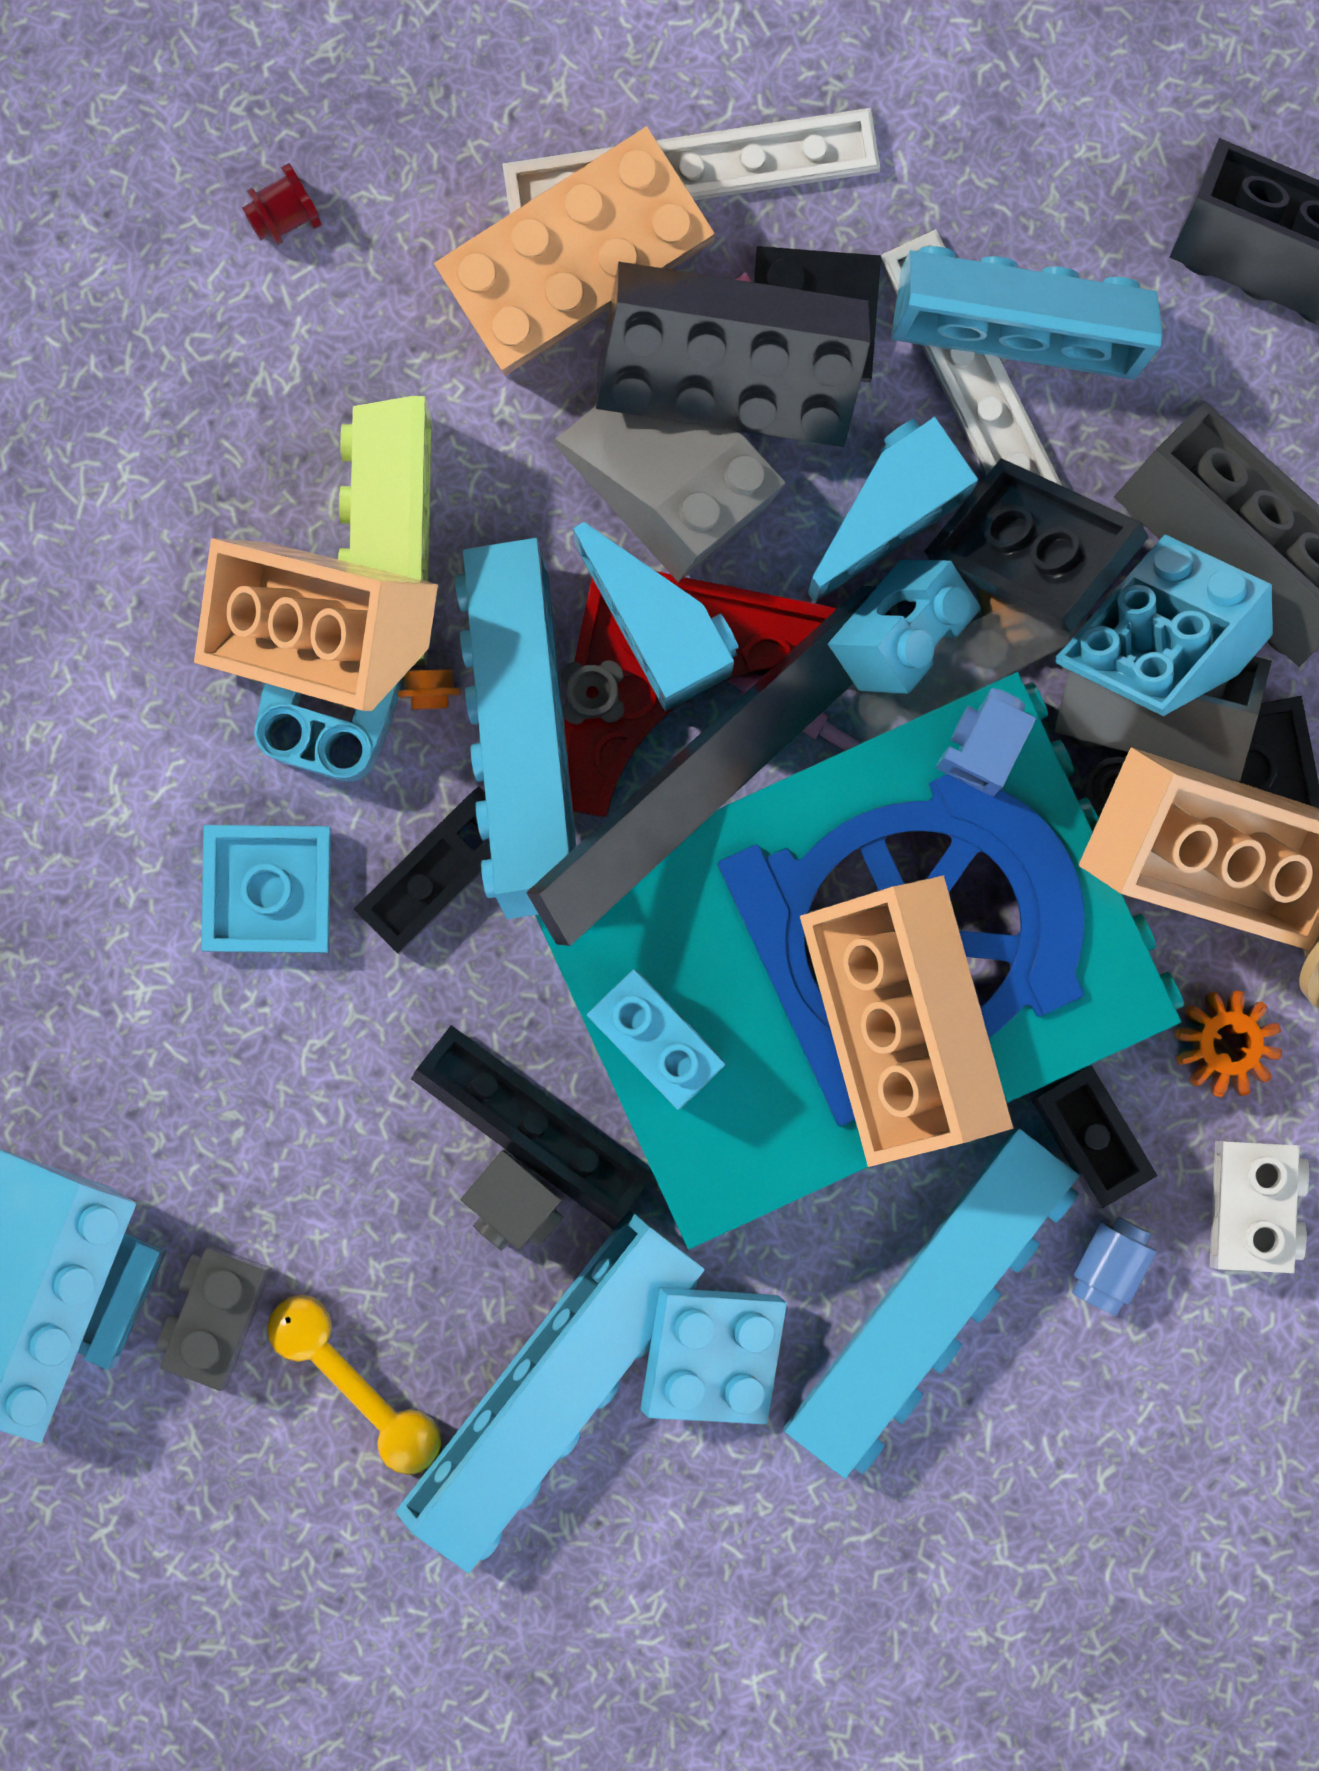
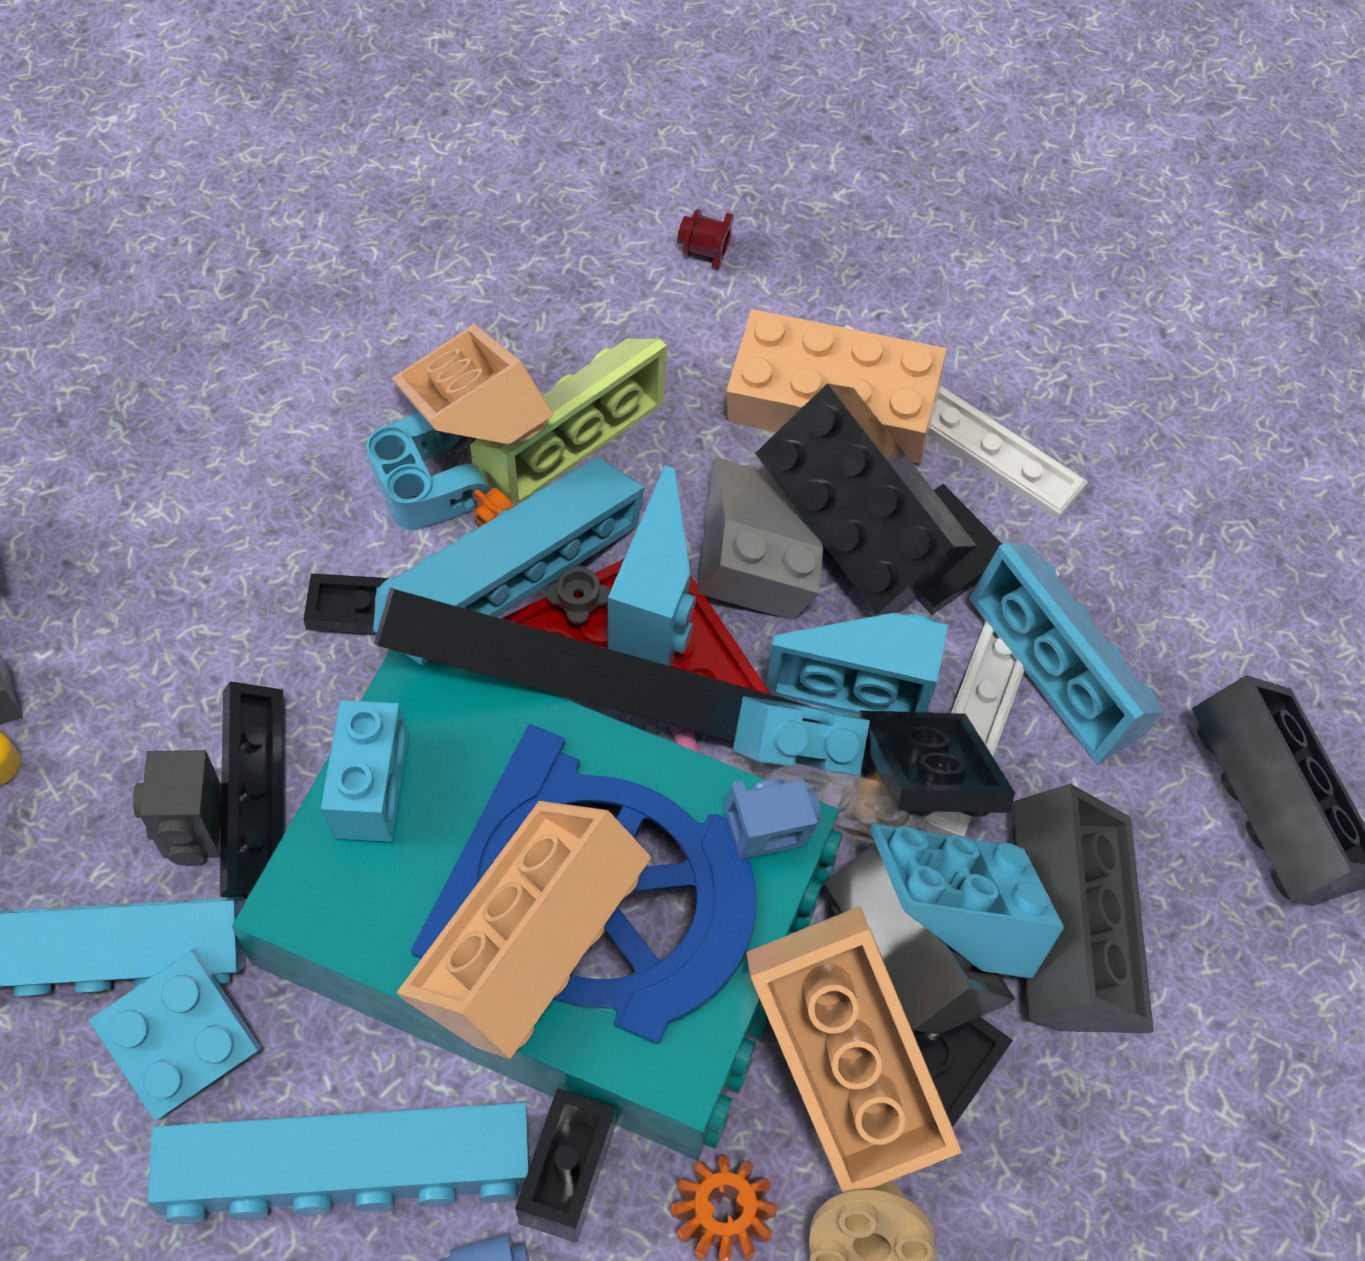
camera: 45 degrees right, 25 degrees down
(266, 889) = (282, 522): medium azure plate -> none

